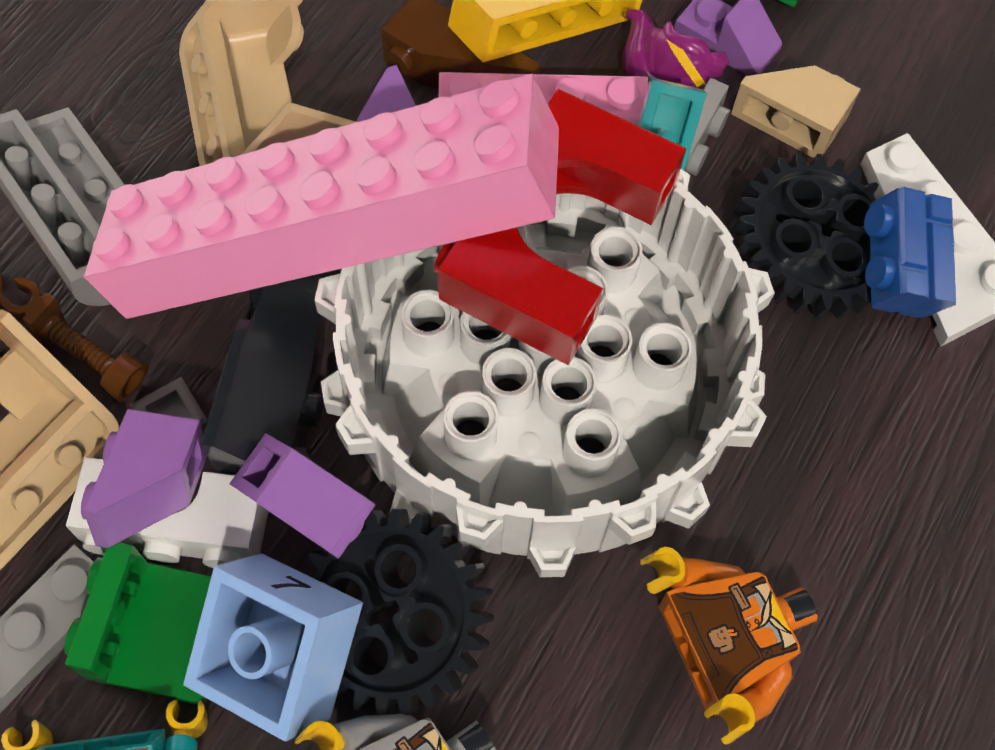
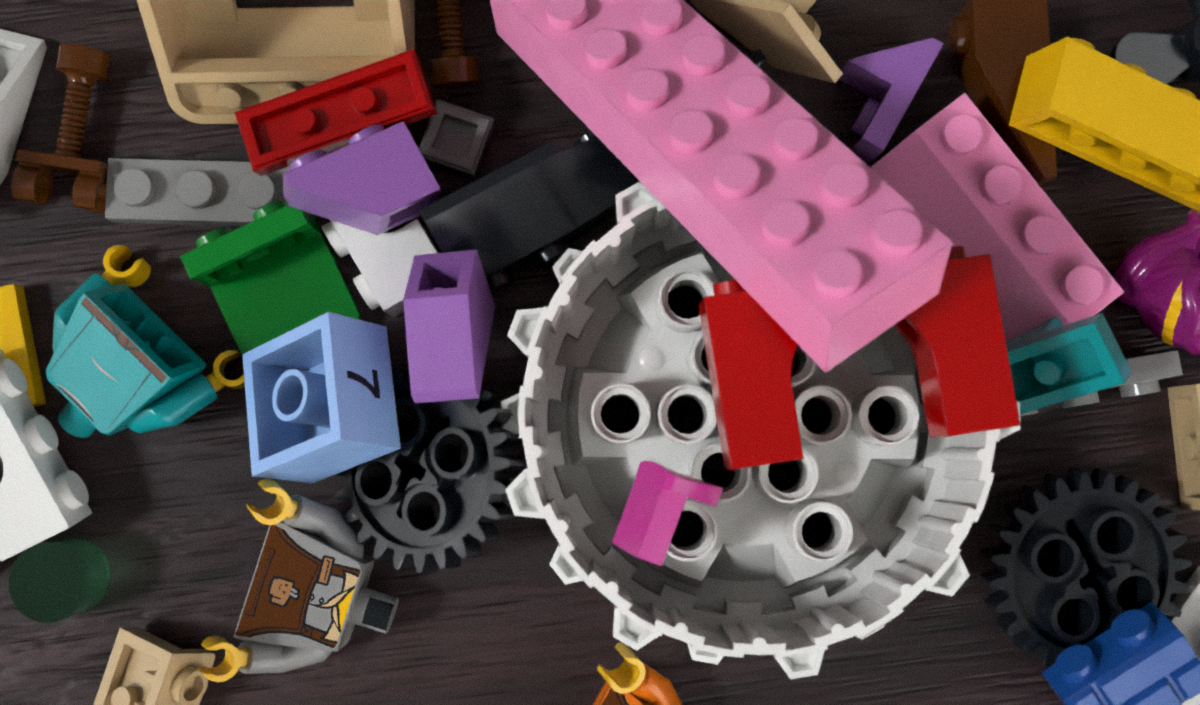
camera: 55 degrees right, 20 degrees up
(50, 504) = (334, 111): none -> red tile
(561, 418) = (656, 509): none -> dark pink tile

